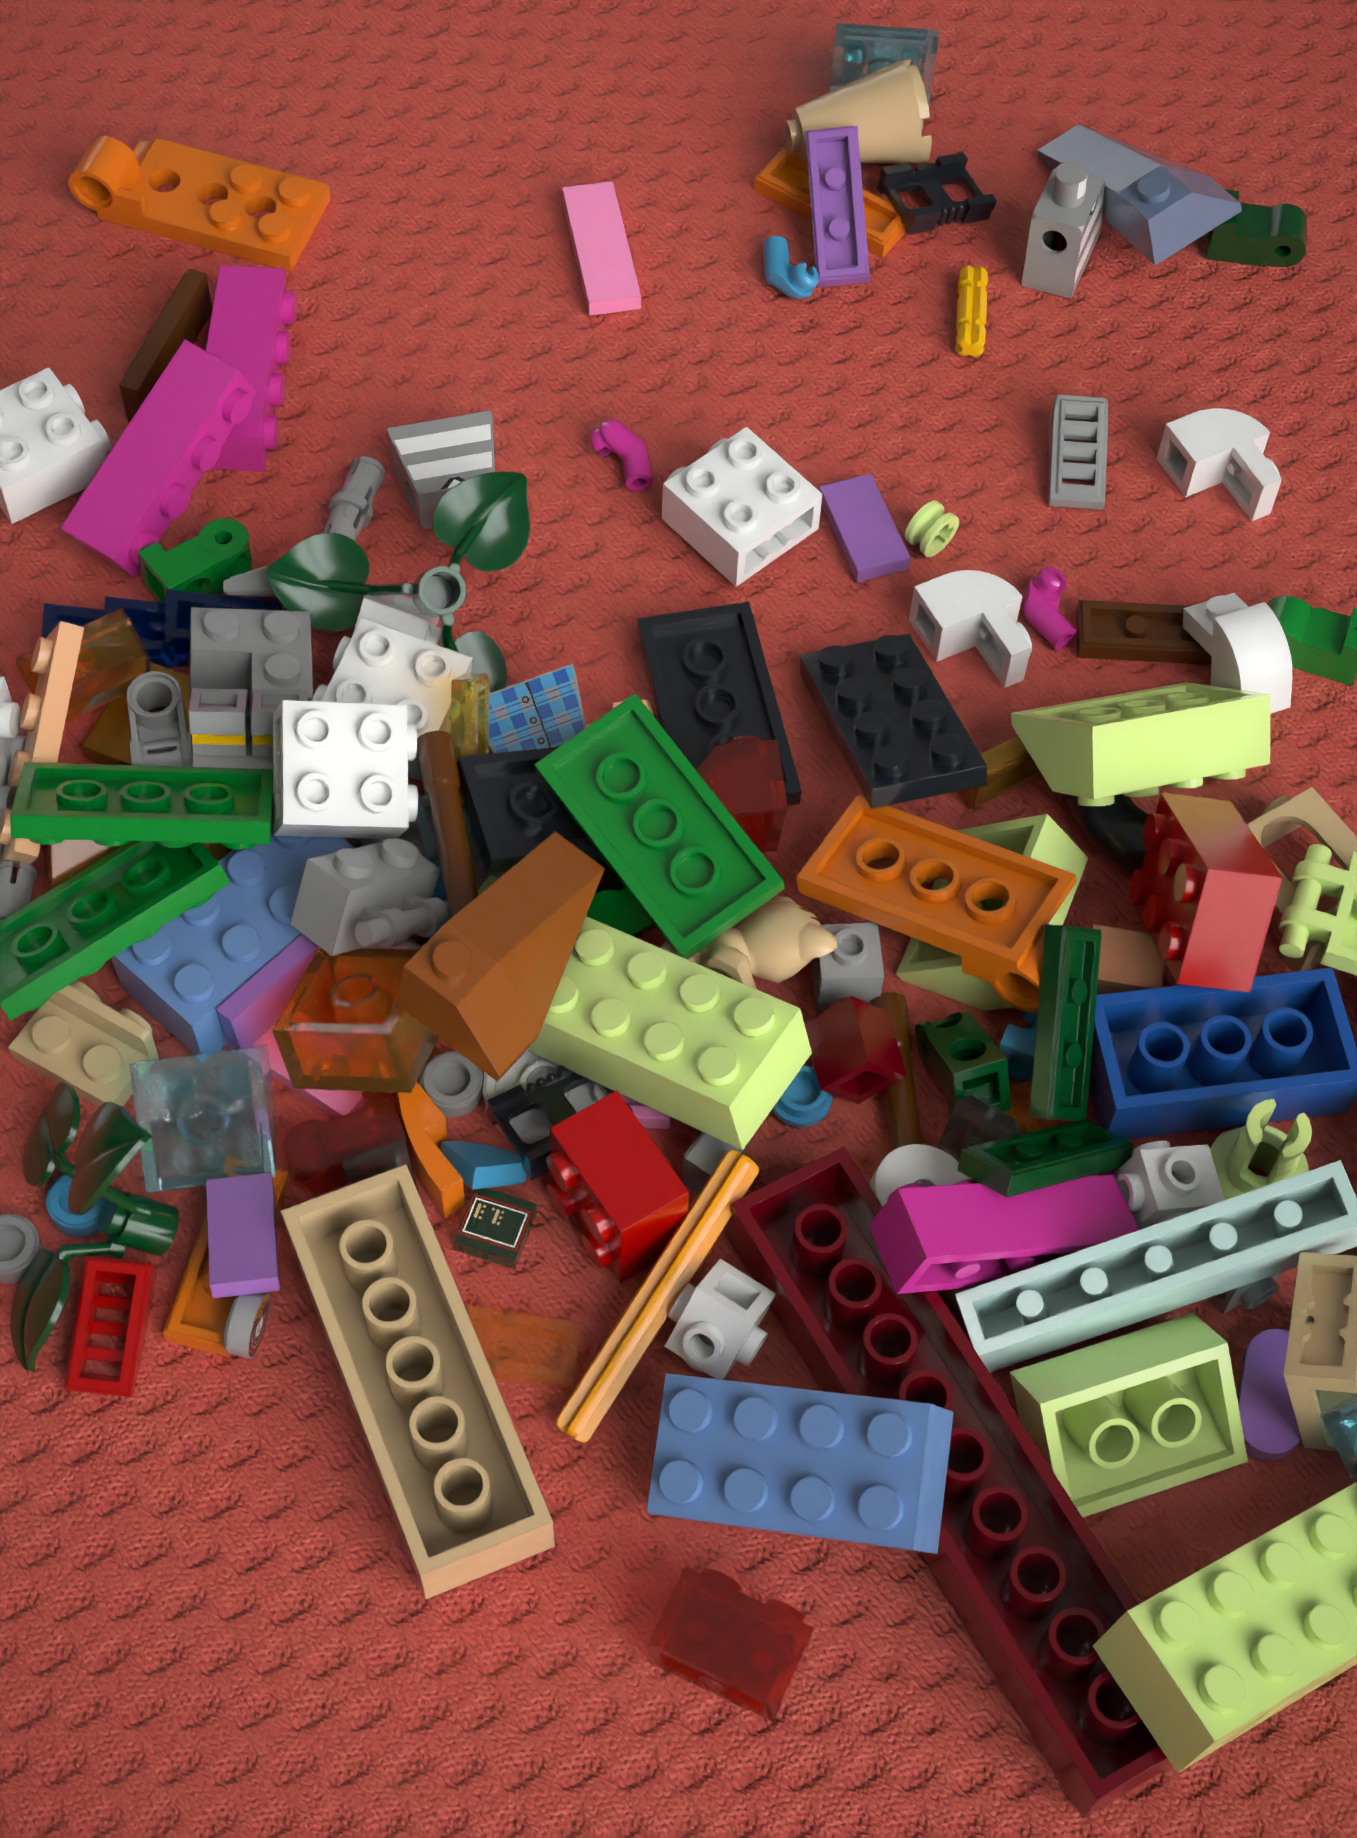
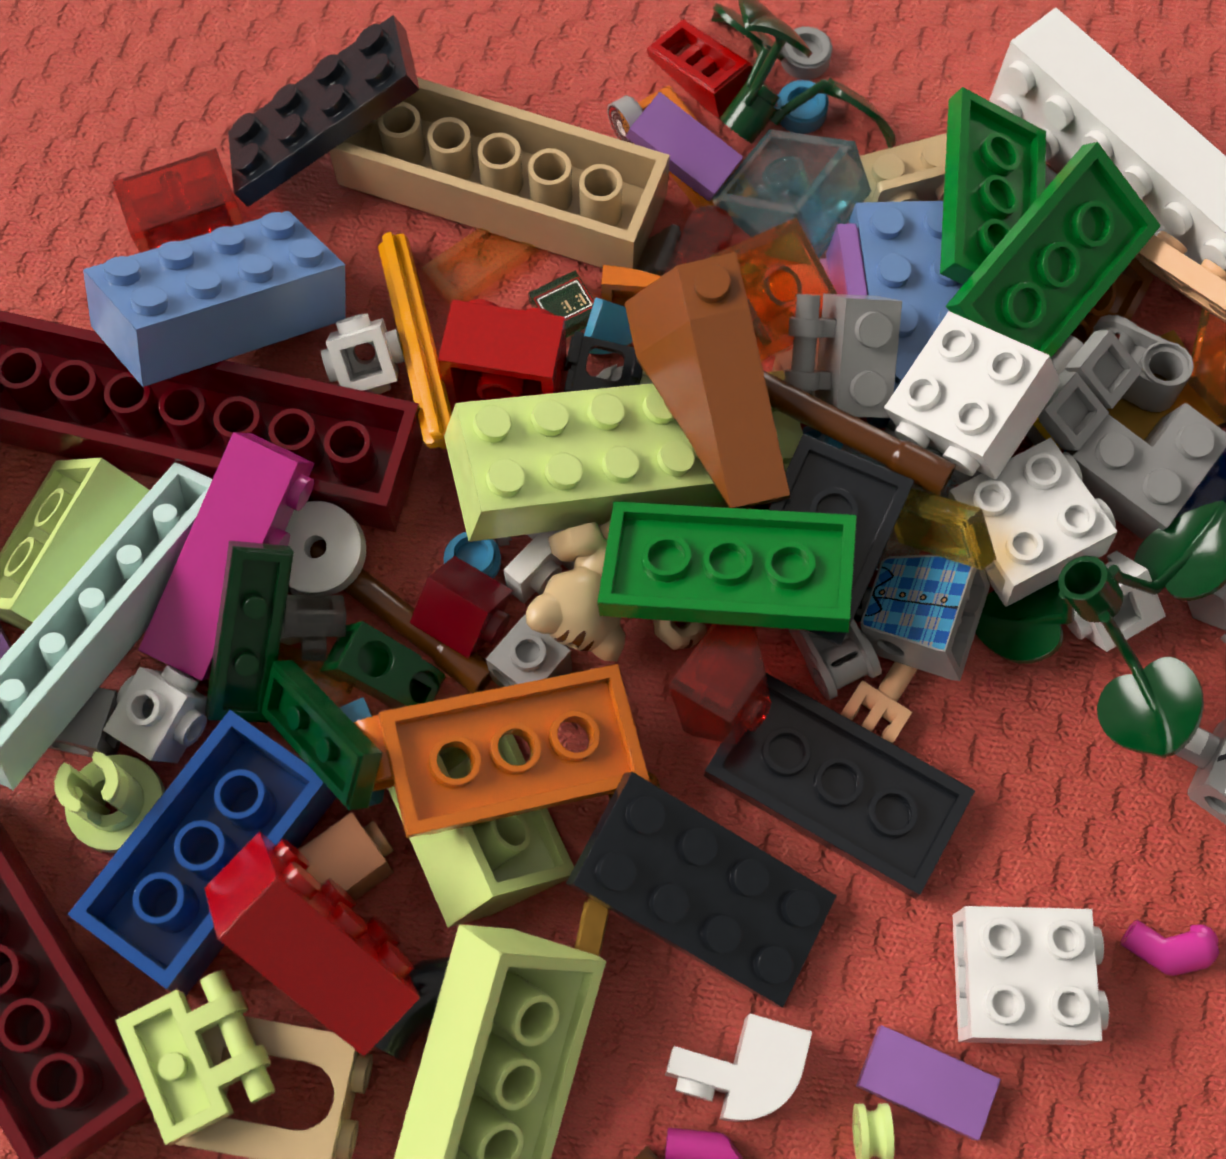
camera: 135 degrees right, 10 degrees up
(517, 1571) = (321, 110): none -> black plate

